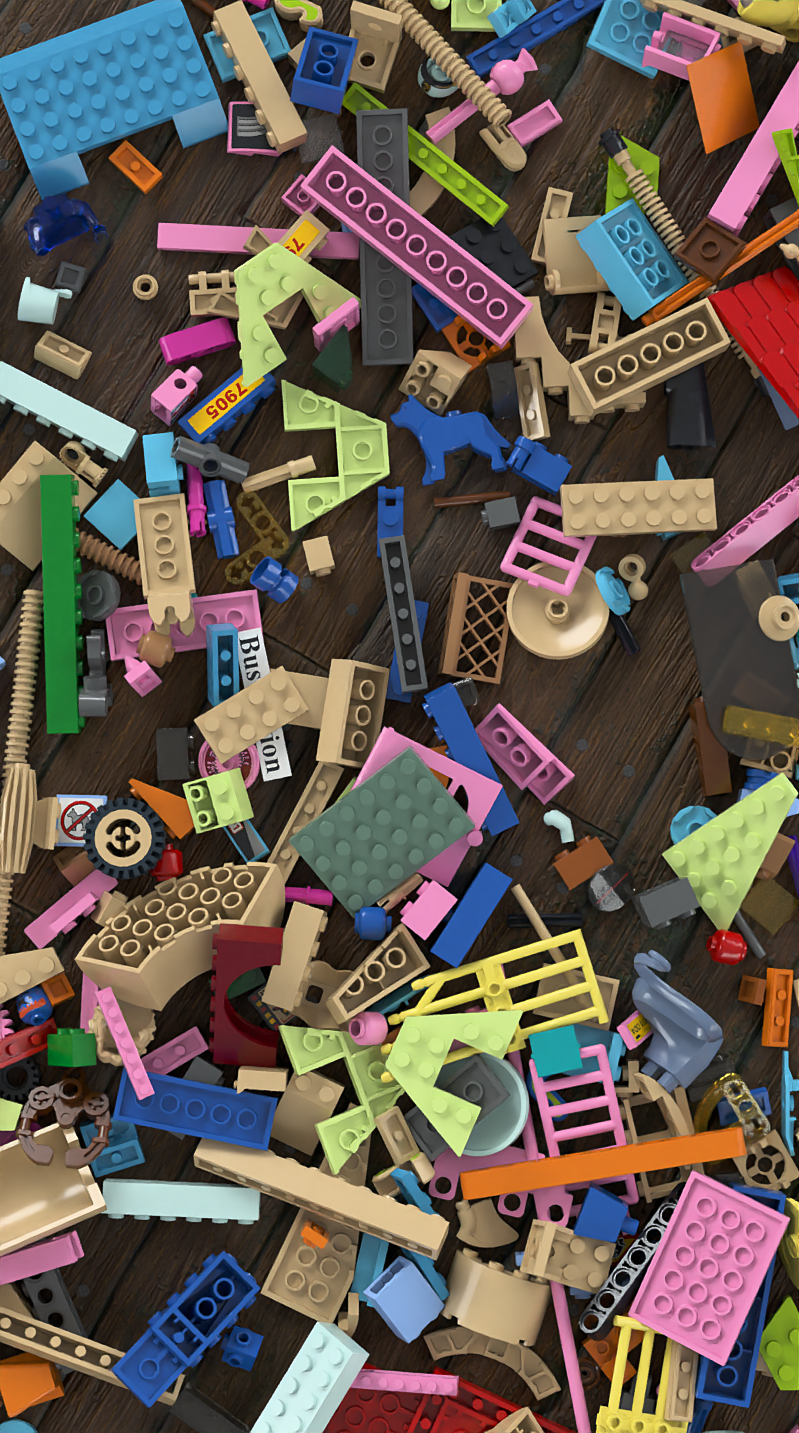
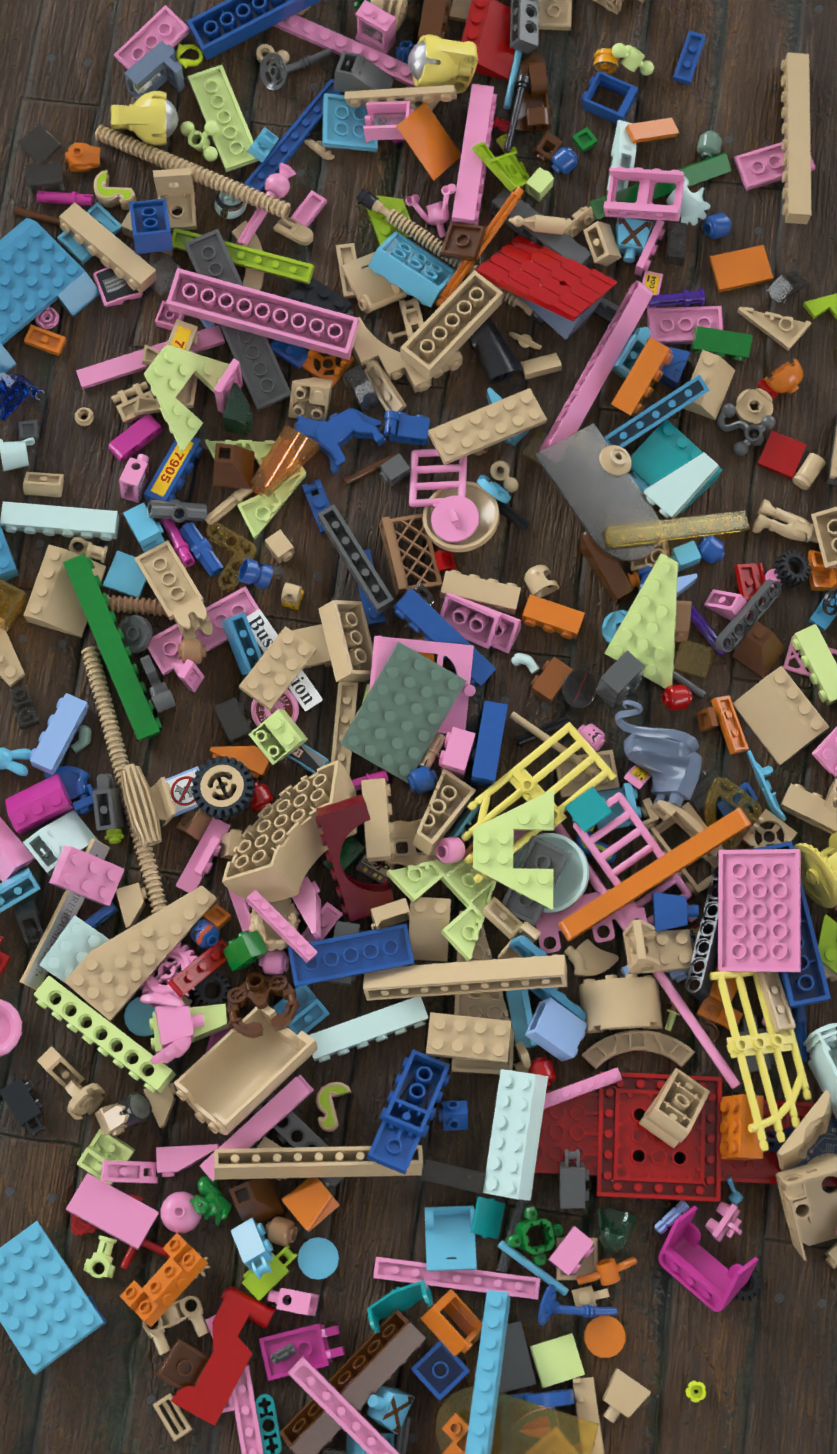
camera: 20 degrees left, 10 degrees down
(95, 1272) = (325, 1104): none -> animal
(103, 1076) = (274, 962): none -> bright pink head
(153, 146) = (51, 322): none -> bright pink plate
(171, 1027) = (310, 906): none -> bright pink slope
(293, 1267) = (468, 1038): none -> tan brick
(301, 431) = (233, 466): none -> reddish brown slope
(308, 626) = (292, 596): none -> tan leg
(314, 1234) = (472, 1008): orange plate -> none
(366, 448) = (283, 460): none -> clear orange slope
(369, 1337) = (543, 1067): none -> red head
(515, 657) = (445, 560): none -> red plate
(542, 715) = (481, 591): none -> tan brick
(547, 612) = (455, 519): none -> bright pink shield
(551, 1335) = (673, 1012): none -> yellowish green piece
(580, 45) = (317, 147): none -> tan piece
(601, 953) = (592, 735): none -> bright pink head
(616, 733) = (537, 583): none -> tan helmet
(617, 783) = (552, 617): none -> orange brick
(695, 192) = (437, 212): none -> bright pink piece
(735, 409) = (524, 340): none -> tan piece
(737, 776) = (634, 579): none -> orange bush
(741, 450) = (541, 366): none -> tan slope

